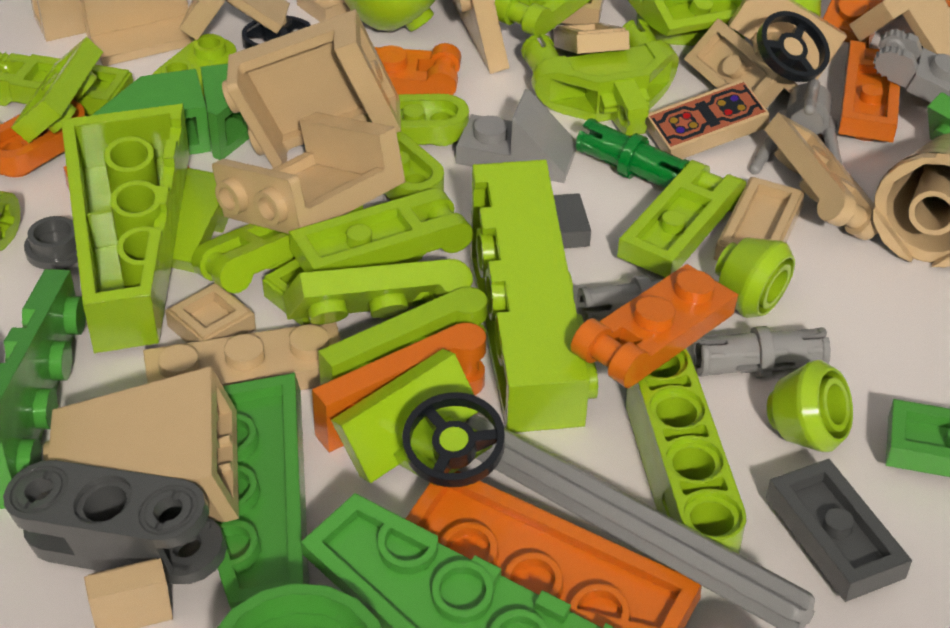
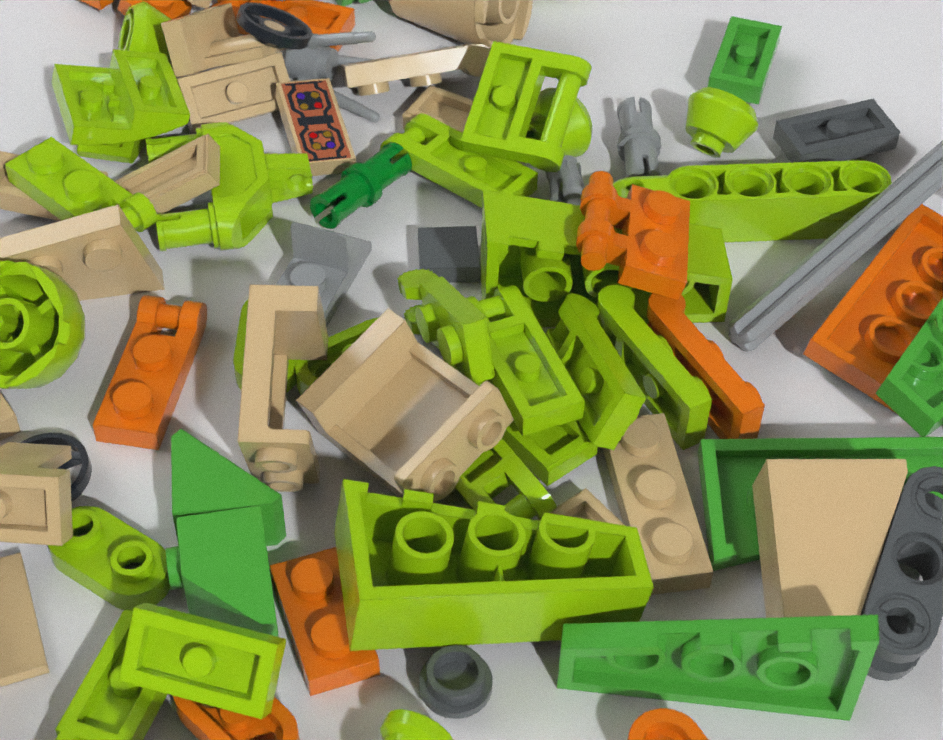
camera: 85 degrees left, 5 degrees up
(386, 179) = (448, 323): none -> lime hinge
(422, 426) = (793, 336): lime piece -> none
(522, 296) = (652, 241): none -> orange plate
(655, 325) = (656, 164): orange plate -> none
(738, 218) = (508, 100): none -> lime plate

